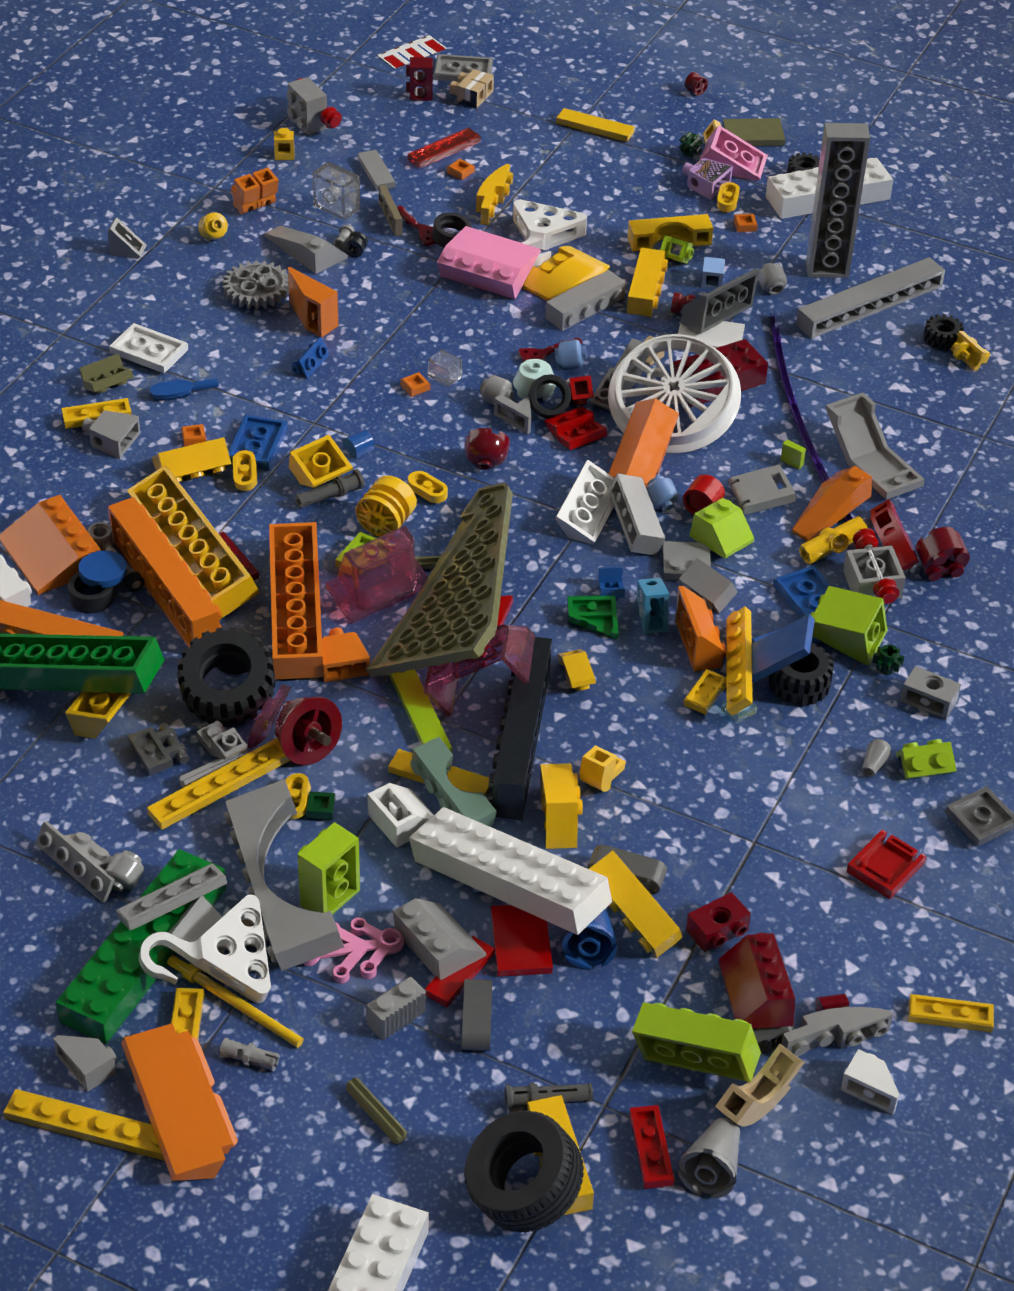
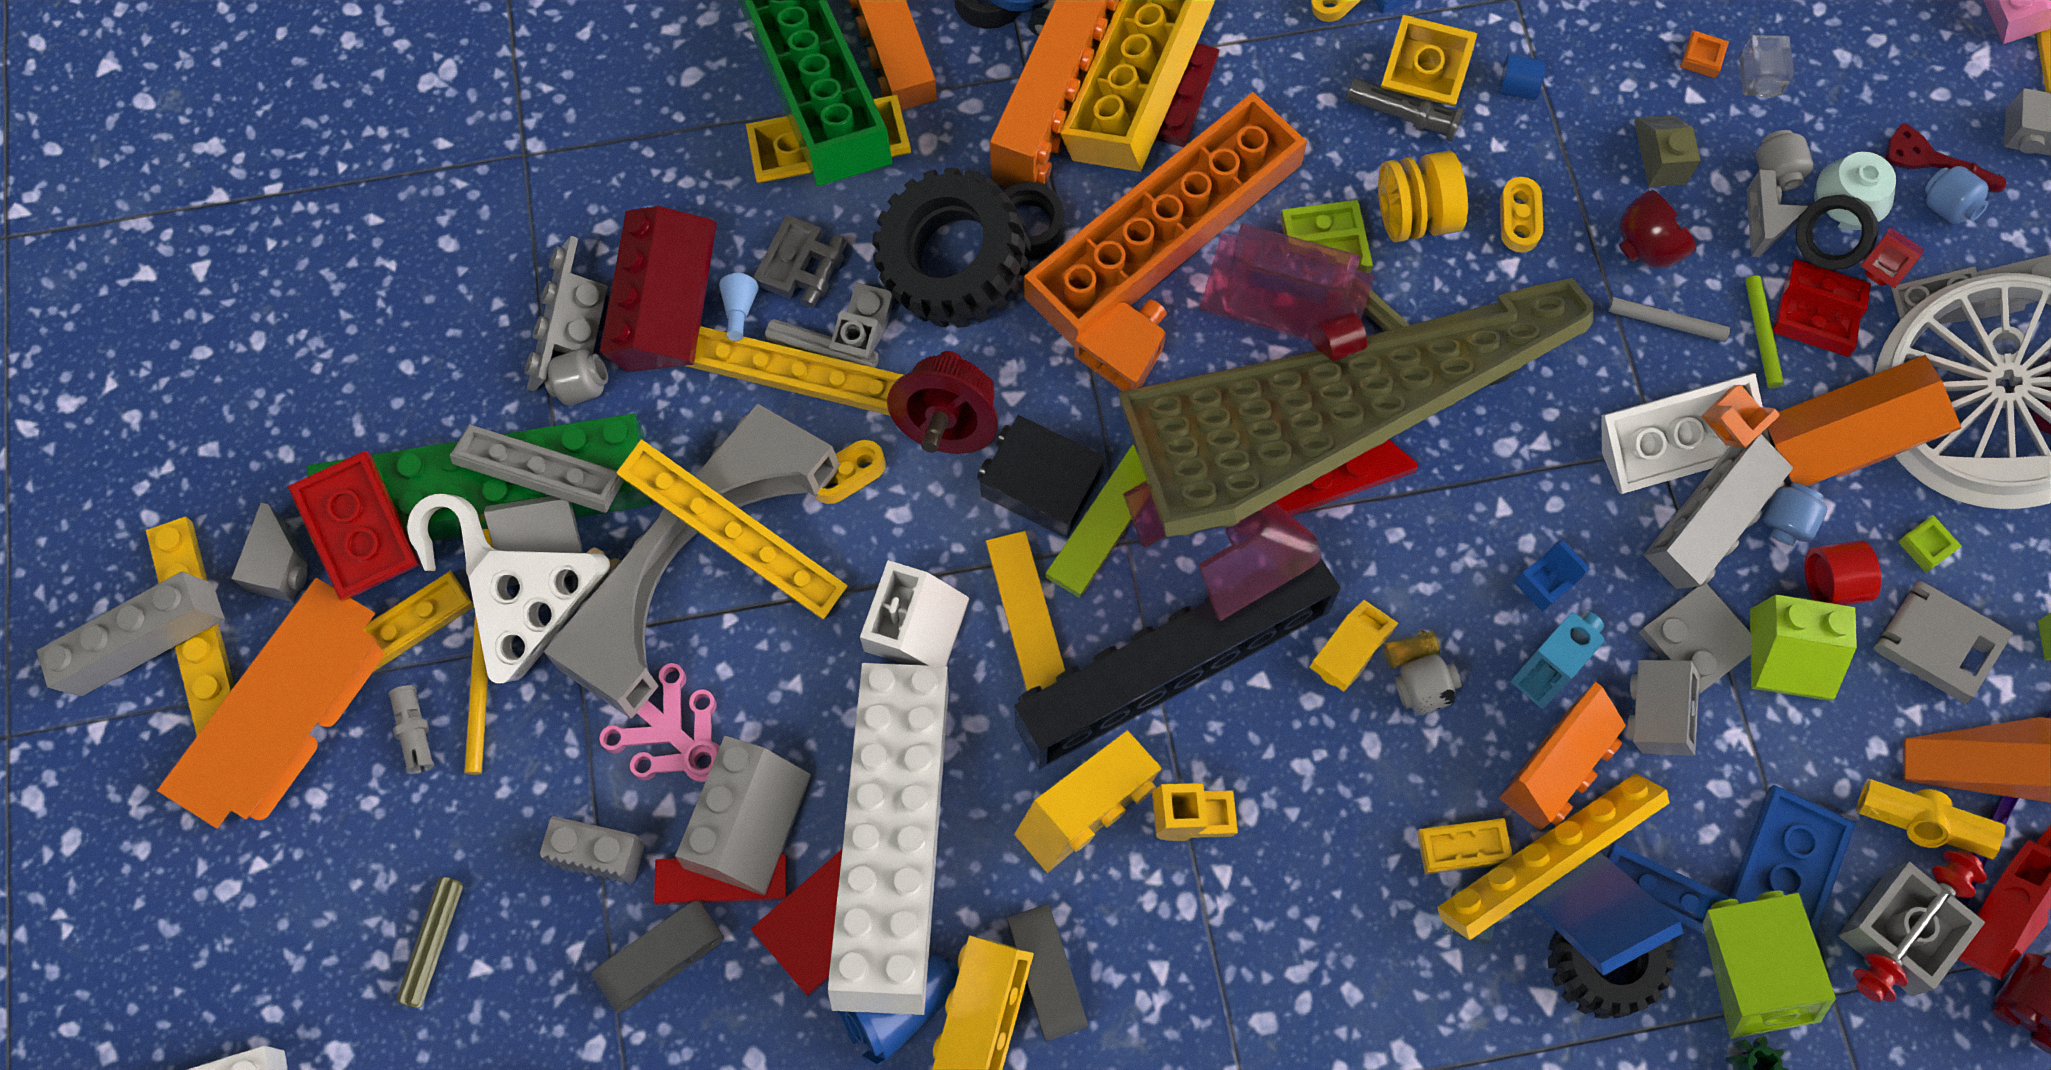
camera: 55 degrees right, 25 degrees up
(69, 1139) = (130, 634): none -> light grey brick
(115, 805) = (658, 289): none -> dark red slope
(119, 993) = (354, 525): none -> red tile
(150, 780) = (738, 295): none -> light blue cone
(264, 844) = (731, 529): none -> yellow plate
(267, 716) = (935, 342): clear pink slope -> none
(320, 805) = (856, 512): dark green plate -> none
(329, 870) = (717, 612): lime brick -> none
(377, 725) = (1040, 475): none -> black brick
(426, 572) = (1339, 336): none -> dark red brick
(433, 763) = (1016, 598): sand green arch -> none
(449, 422) = (1667, 149): none -> olive slope
(535, 473) = (1669, 319): none -> light grey bar
(580, 457) = (1764, 332): none -> lime bar
(594, 613) = (1480, 593): green wing -> none
(599, 648) = (1411, 648): none -> clear yellow pin
(602, 480) = (1738, 417): none -> orange panel
(620, 655) = (1427, 684): none -> light grey head
(715, 466) = (1929, 543): none -> lime tile

